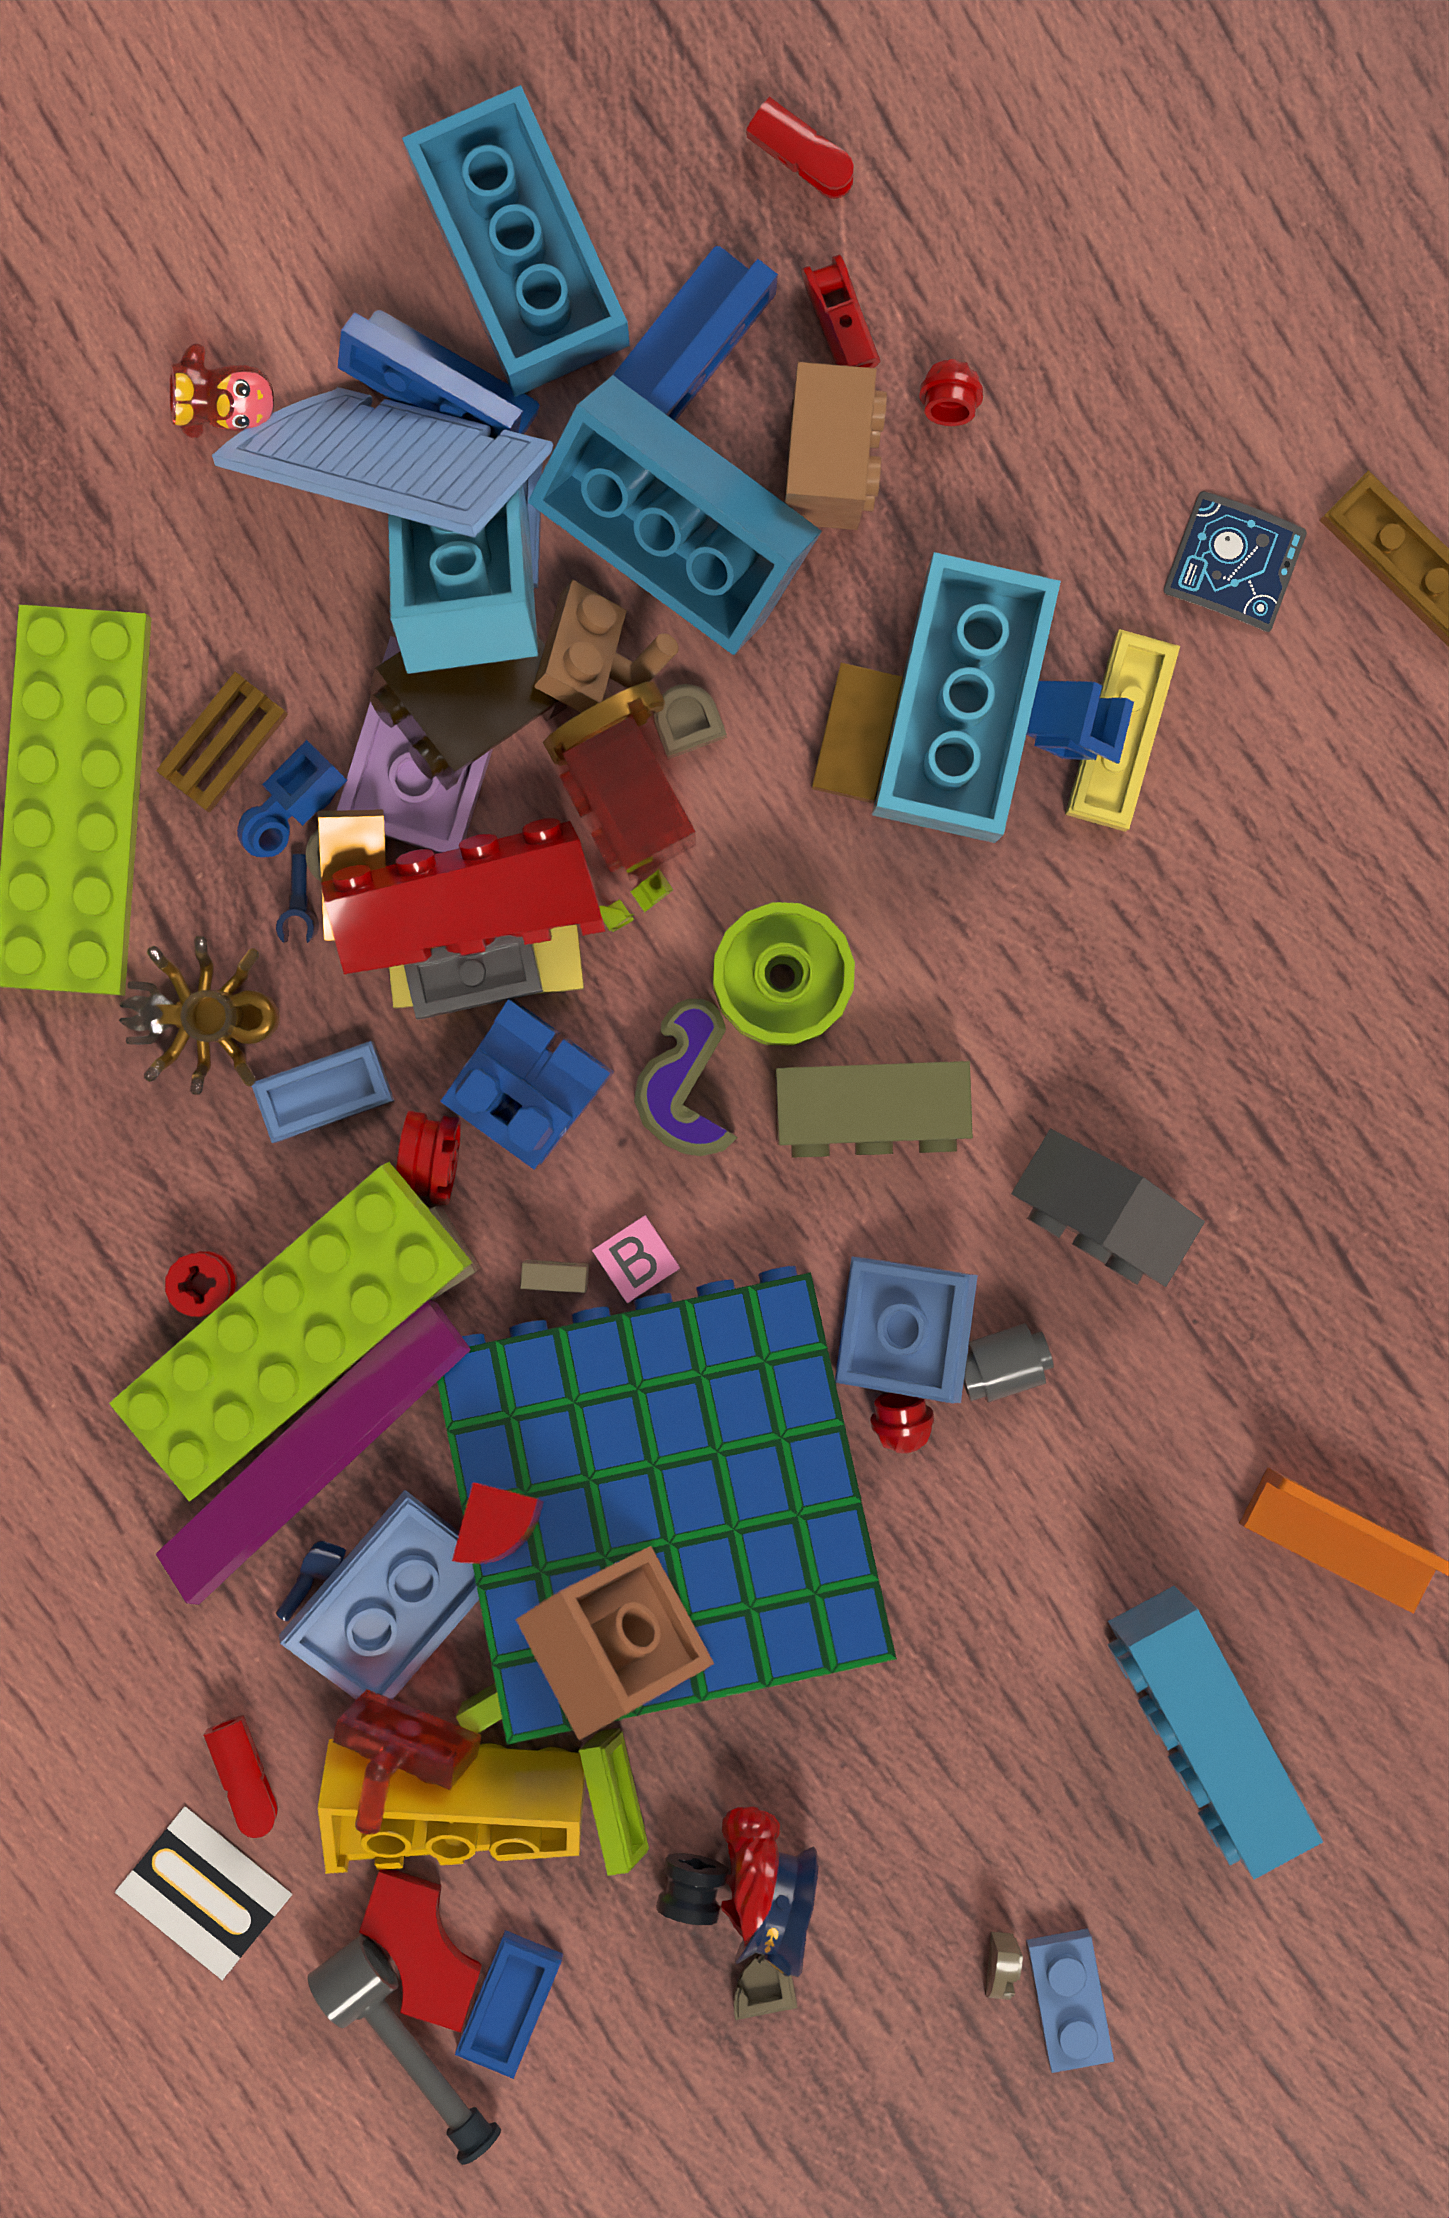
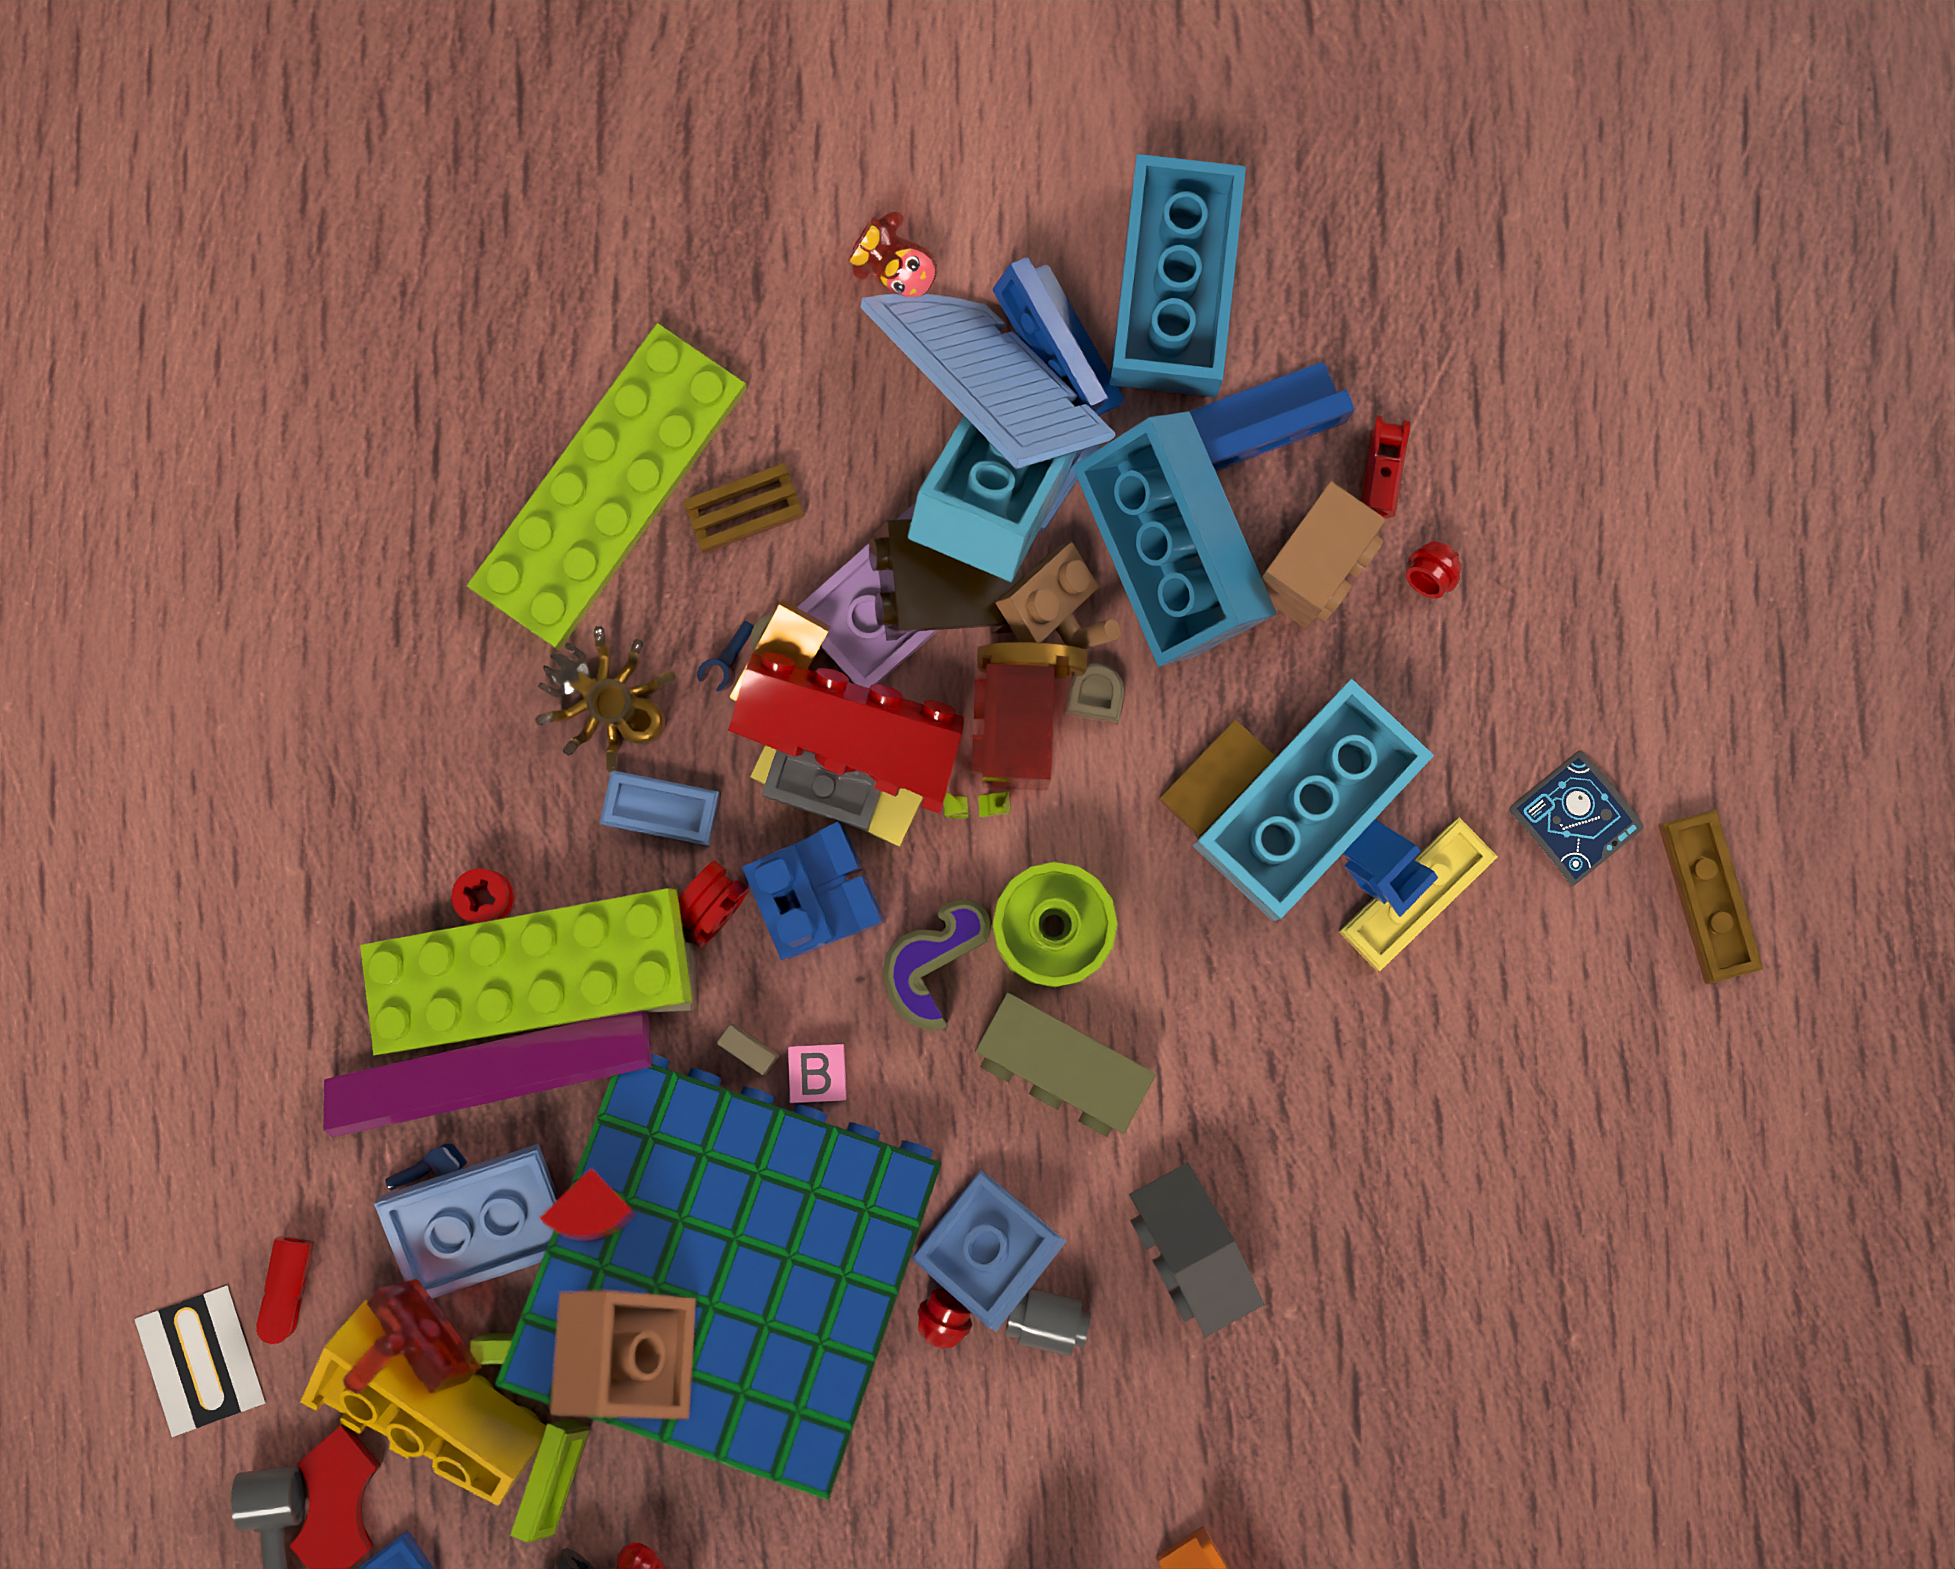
camera: 30 degrees right, 5 degrees down
(298, 790) = (777, 575): blue plate -> none
(801, 149) = (1426, 330): red bar -> none

